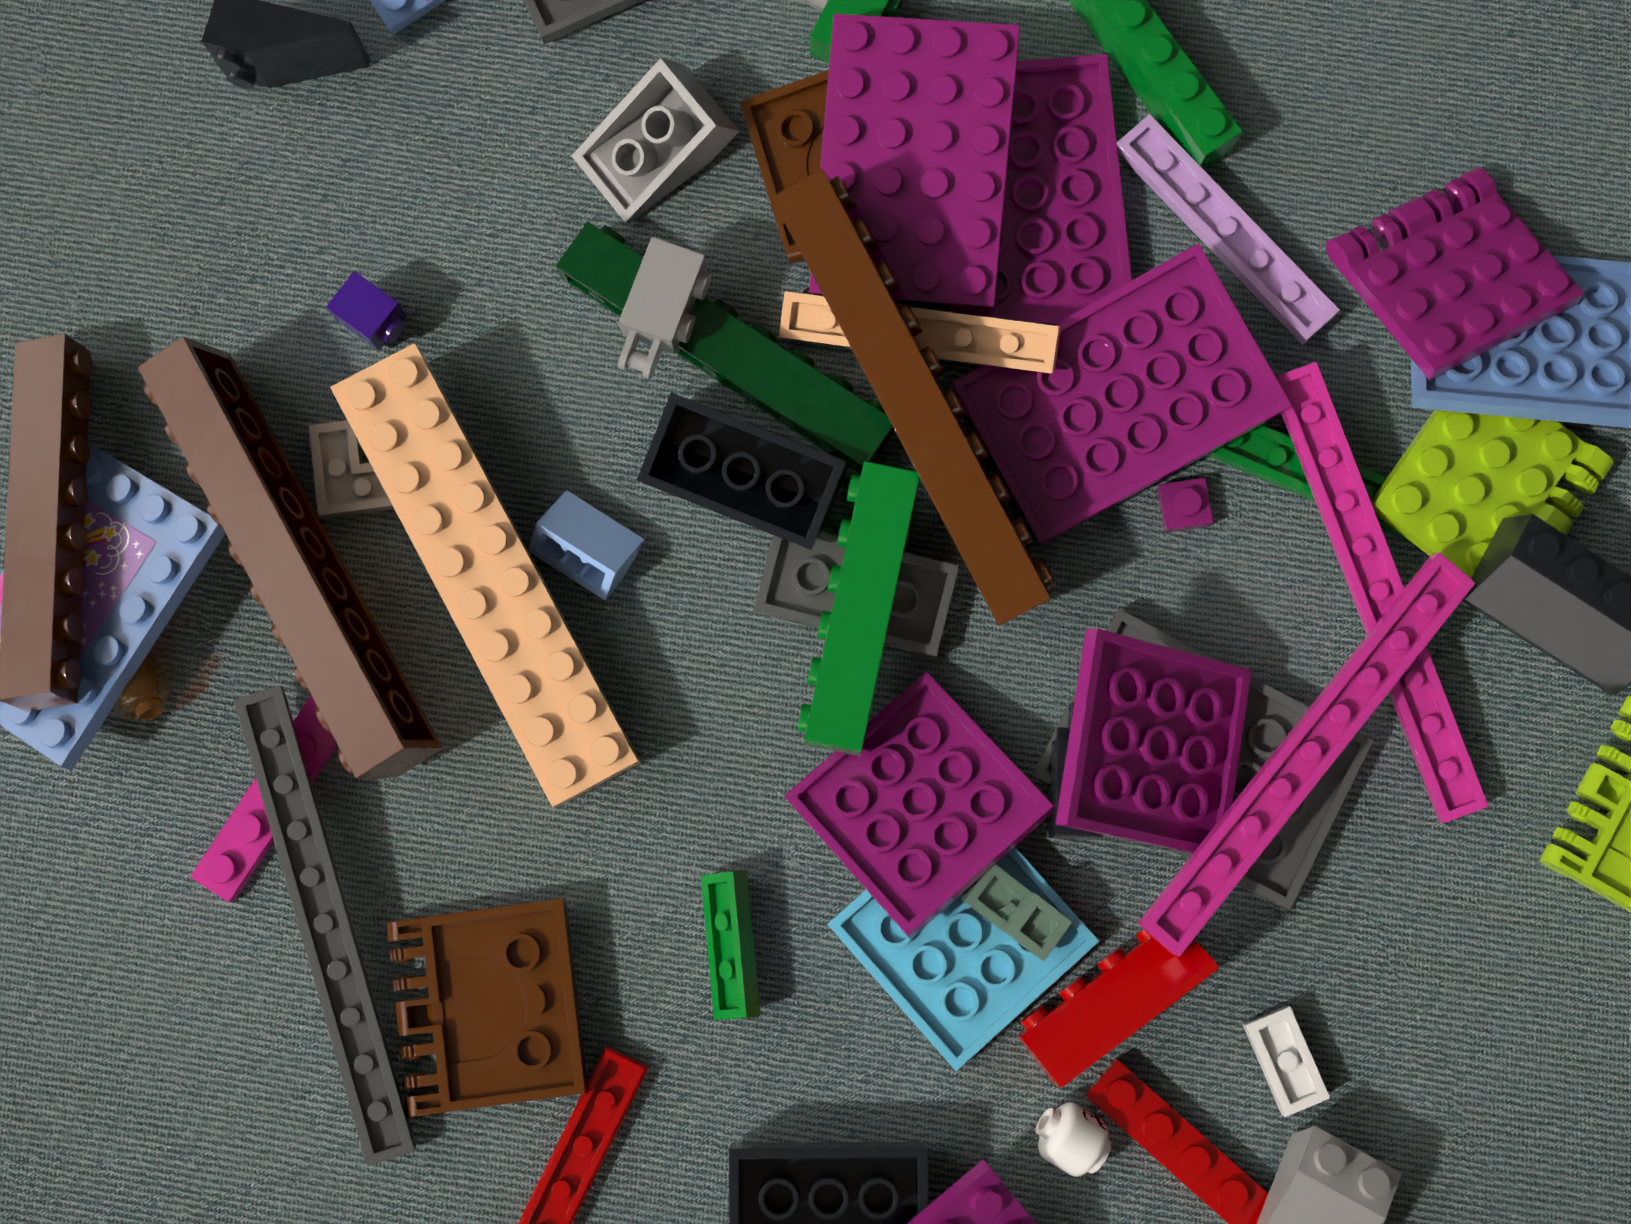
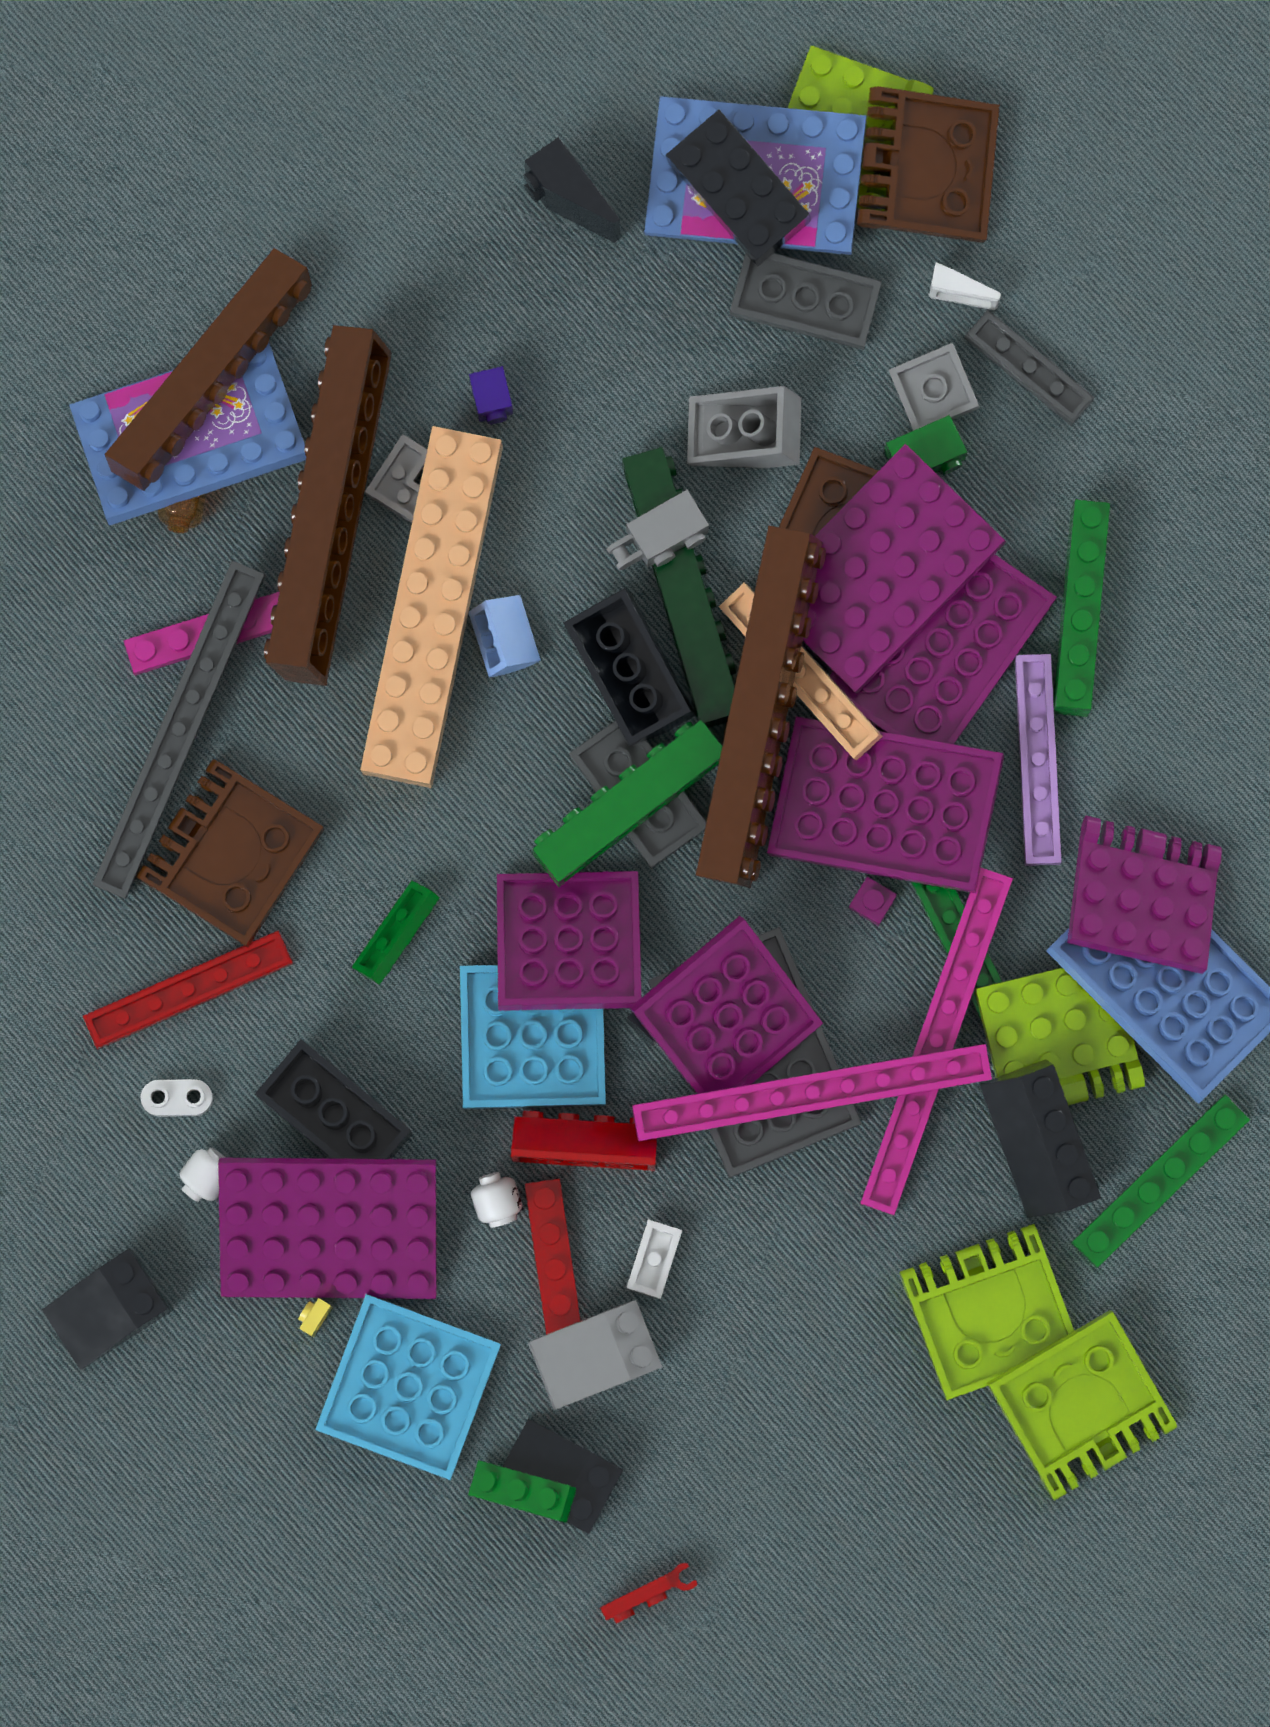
camera: 35 degrees right, 0 degrees up
(1017, 911) = (572, 1046): sand green slope -> none

